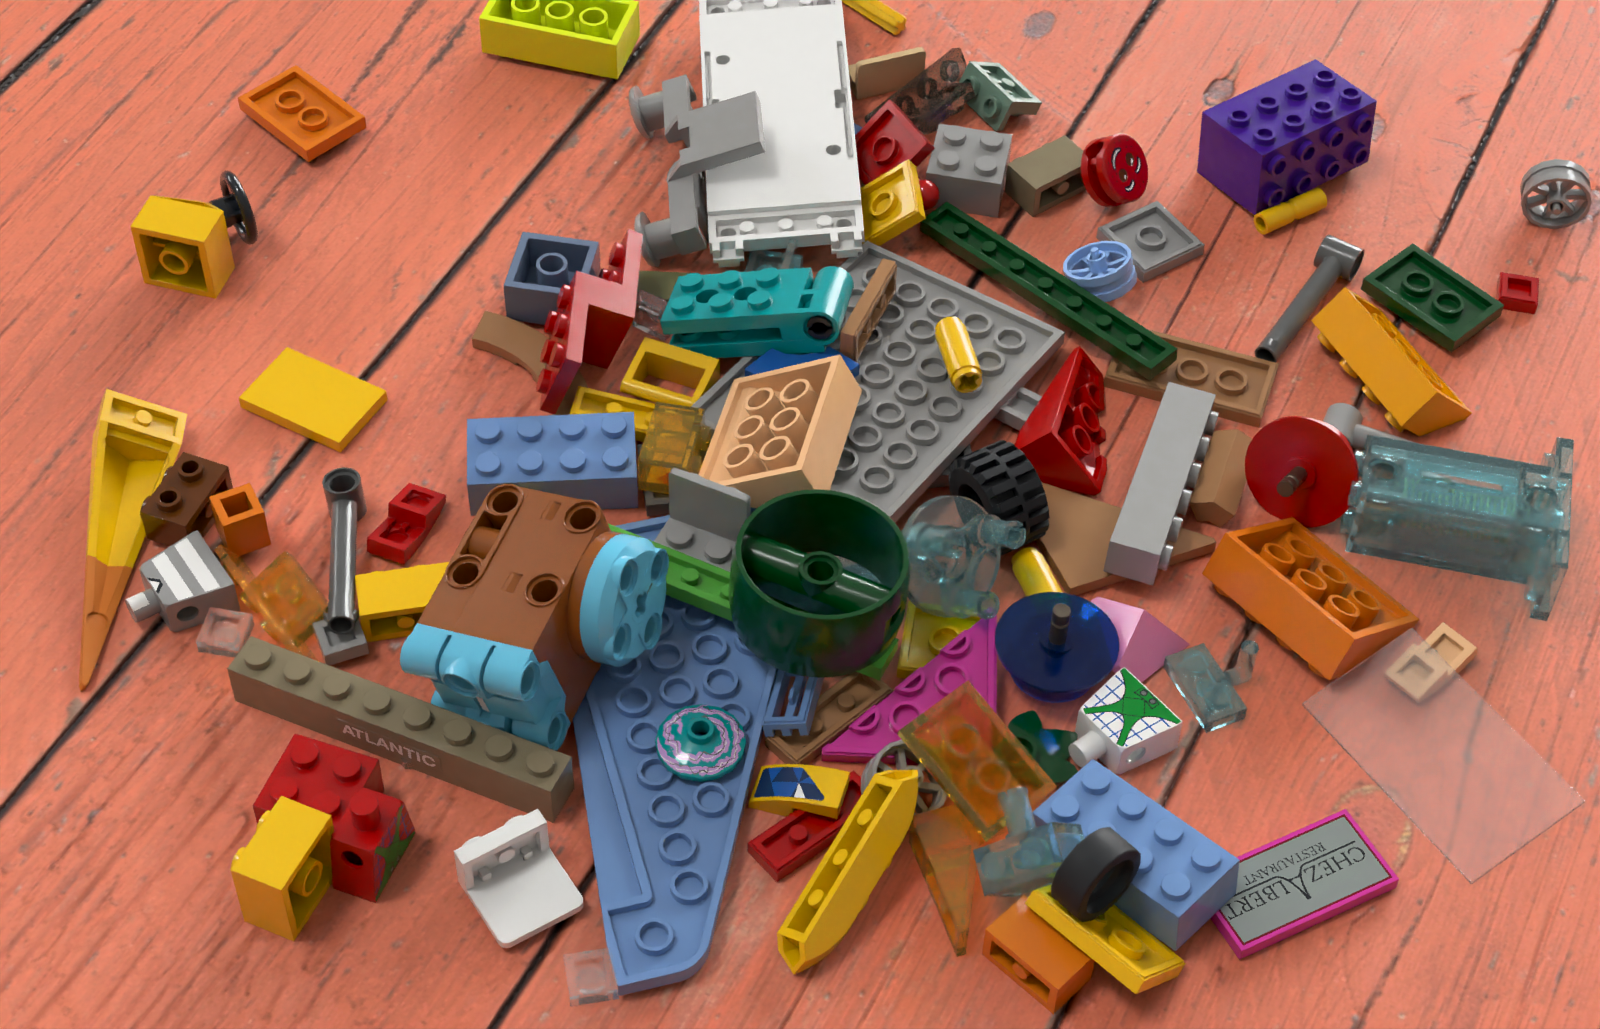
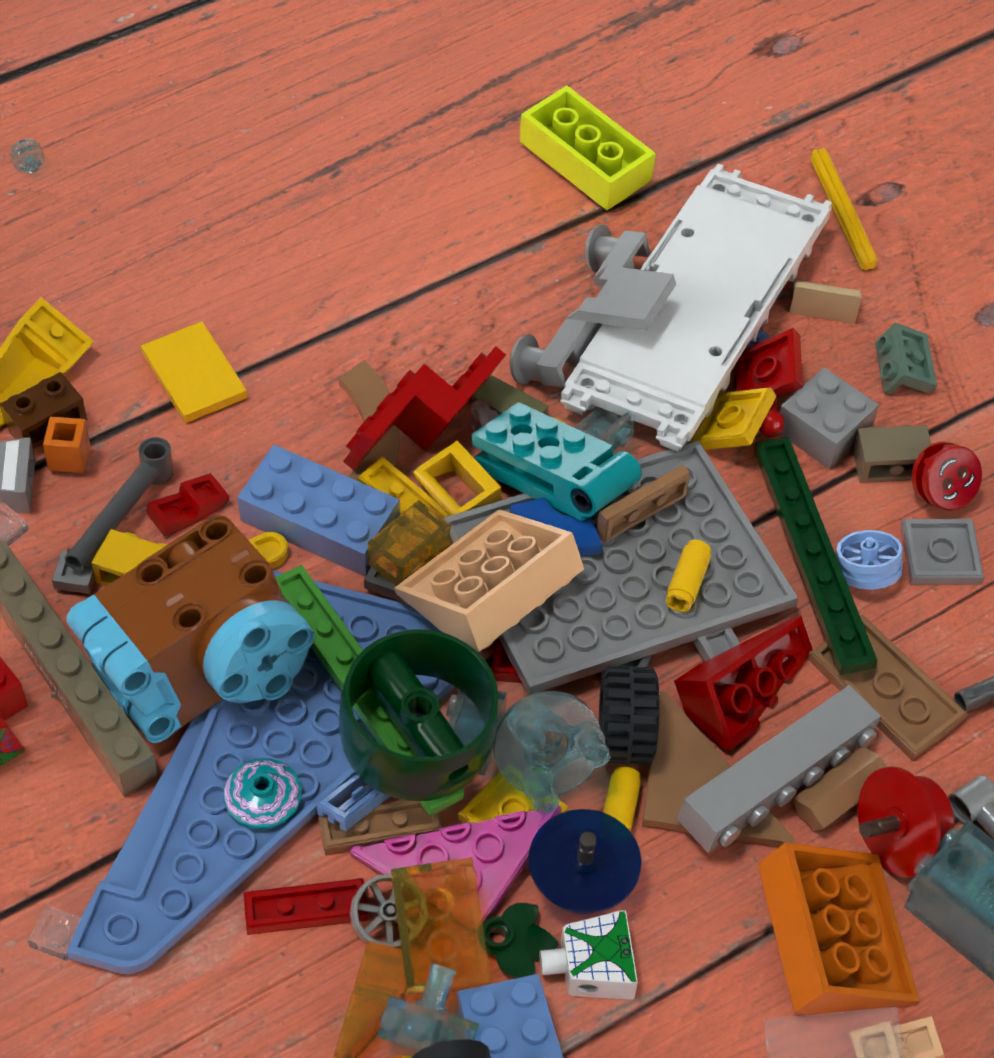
camera: 30 degrees right, 5 degrees up
(187, 241) = (185, 202): yellow piece -> none
(281, 595) = (54, 522): clear yellow bracket -> none
(302, 113) = (347, 134): orange plate -> none
(516, 880) = (58, 829): white bracket -> none
(540, 270) = (425, 342): sand blue brick -> none
(703, 518) = (380, 613): light grey bracket -> none
(799, 786) = (312, 871): yellow slope -> none
(849, 870) = (294, 956): yellow brick -> none
(934, 93) = (845, 337): clear smoke bracket -> none
(1141, 638) = (661, 893): bright pink slope -> none
(1207, 687) = (695, 961): clear light blue plate -> none

